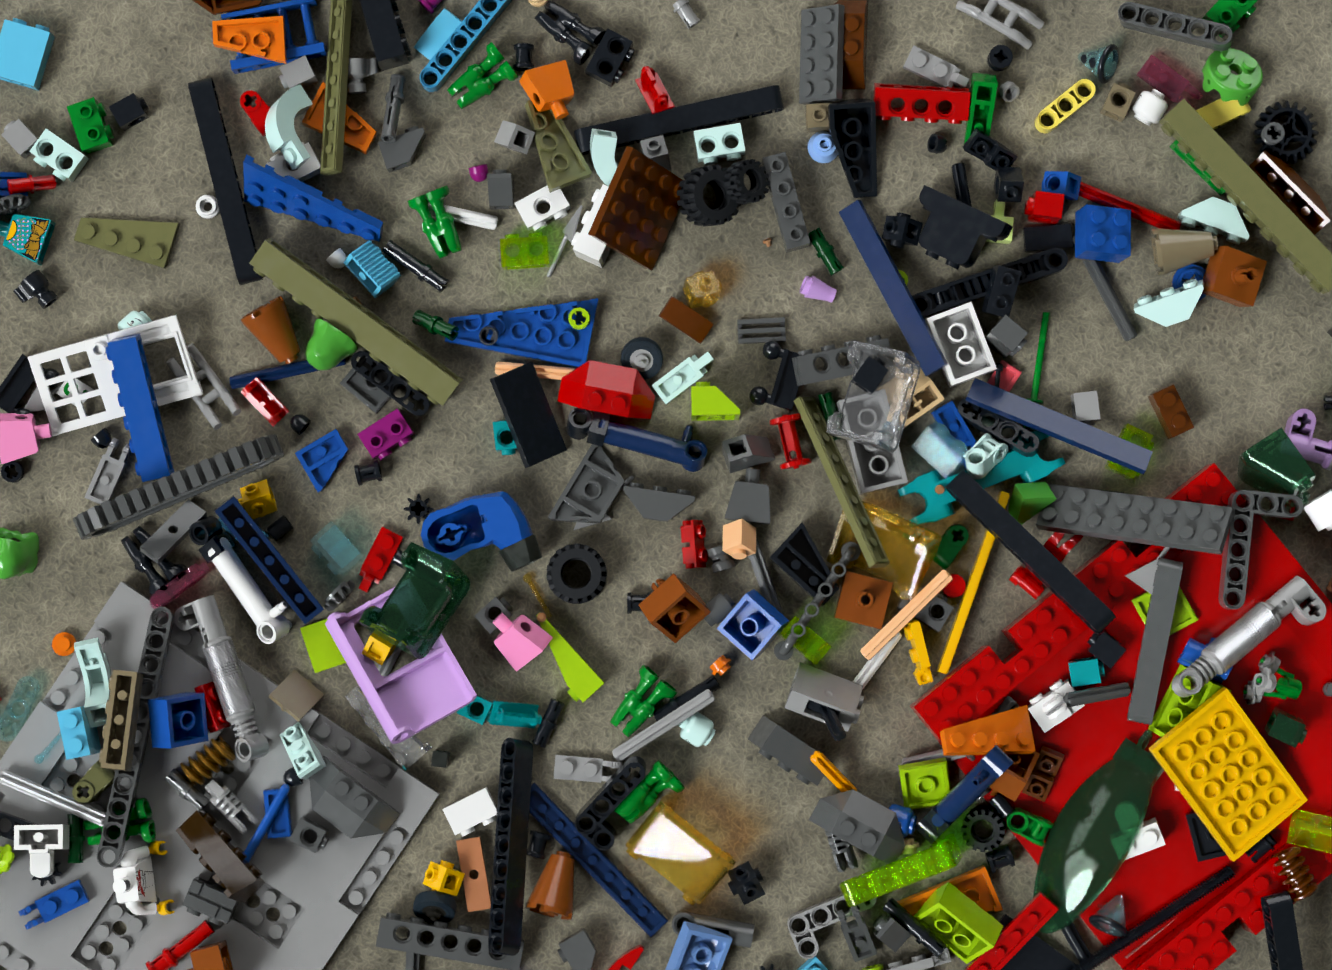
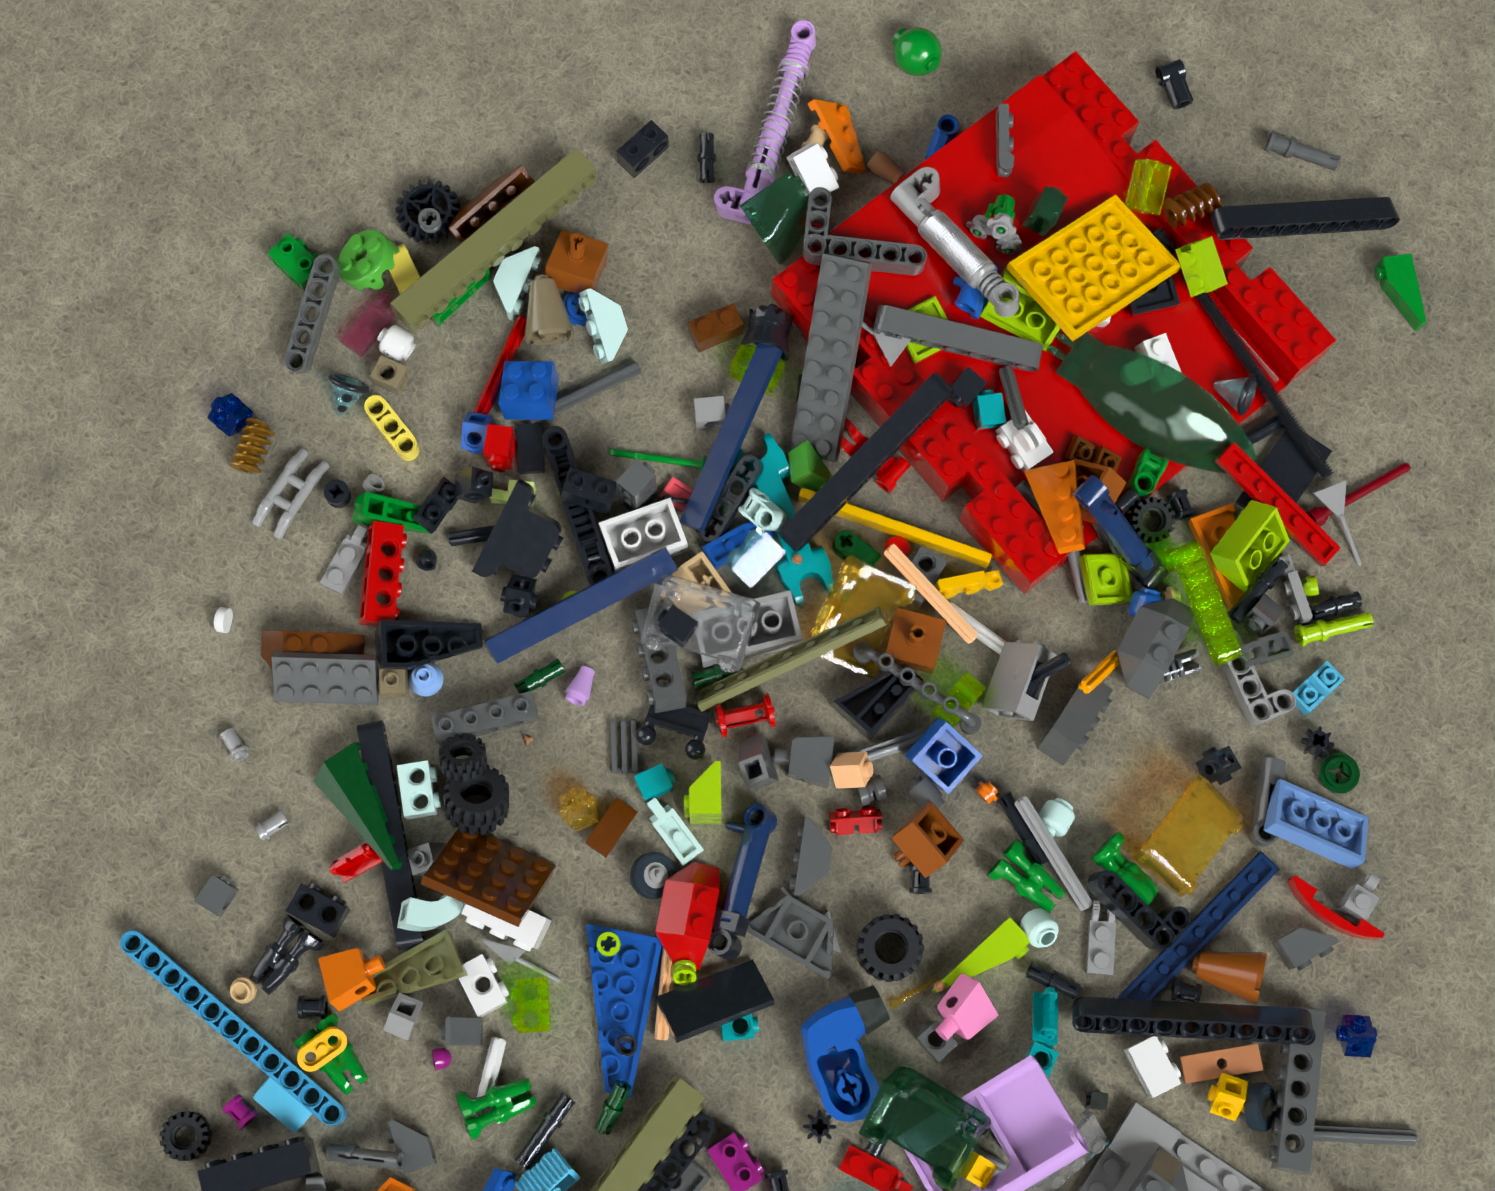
camera: 95 degrees left, 10 degrees down
(485, 67) = (323, 1050): none -> yellow plate
(554, 387) = (684, 972): none -> lime bush
(595, 710) = (1039, 928): none -> light aqua head
(721, 78) = (348, 788): none -> dark green wedge
(727, 359) = (654, 782): none -> teal brick
(1168, 462) = (769, 326): none -> black hat
(1232, 881) = (1201, 266): none -> lime brick

